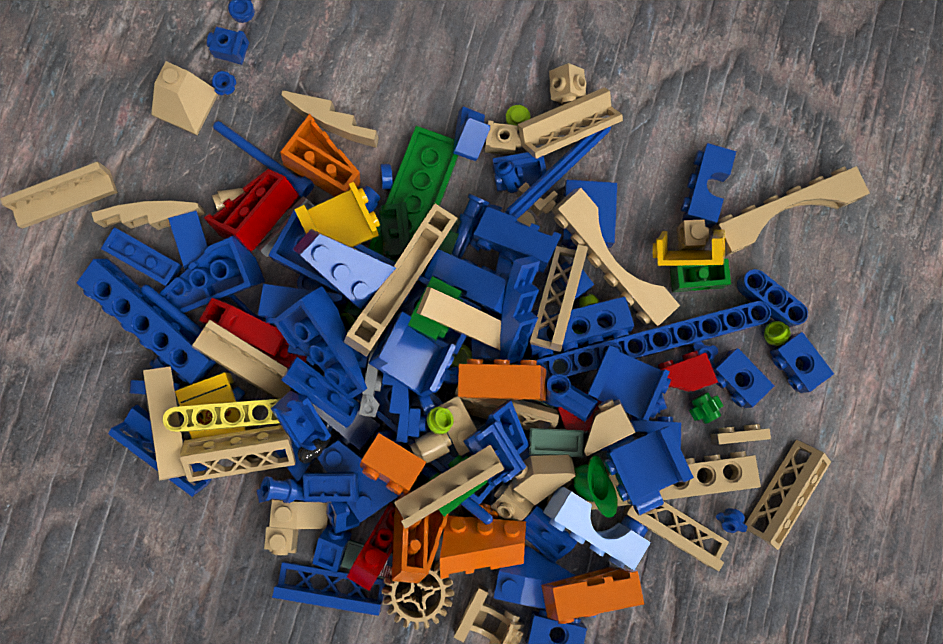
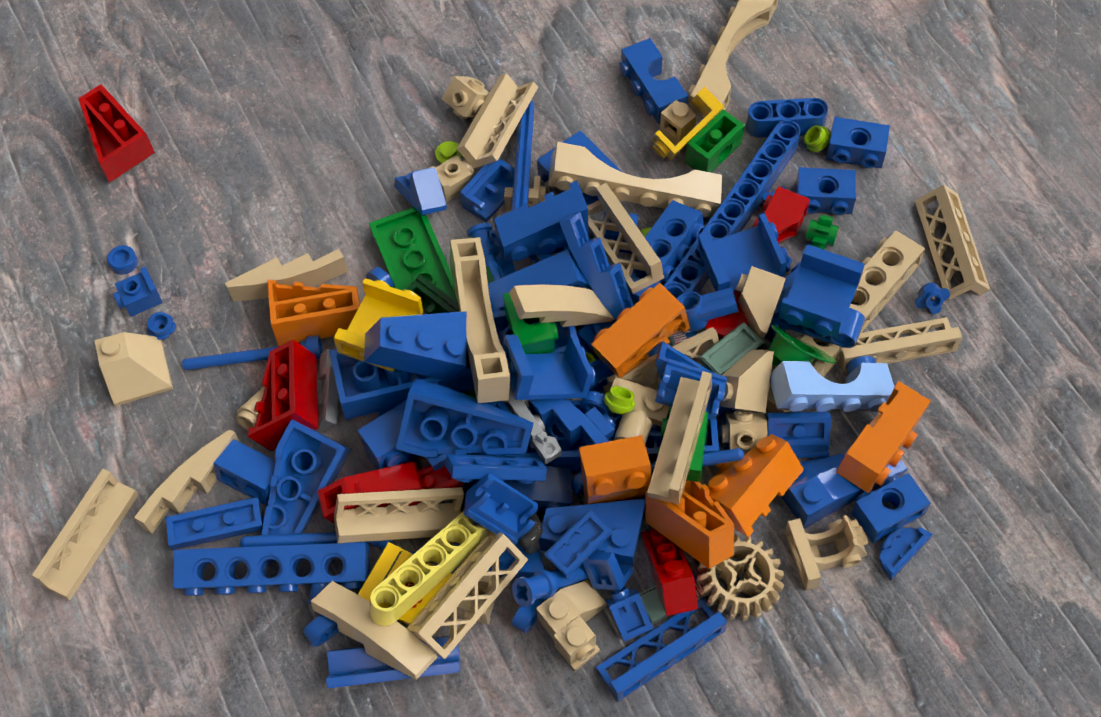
camera: 35 degrees left, 20 degrees down
(506, 172) = (481, 191): blue pin -> none
(750, 433) = (874, 225): tan plate -> none

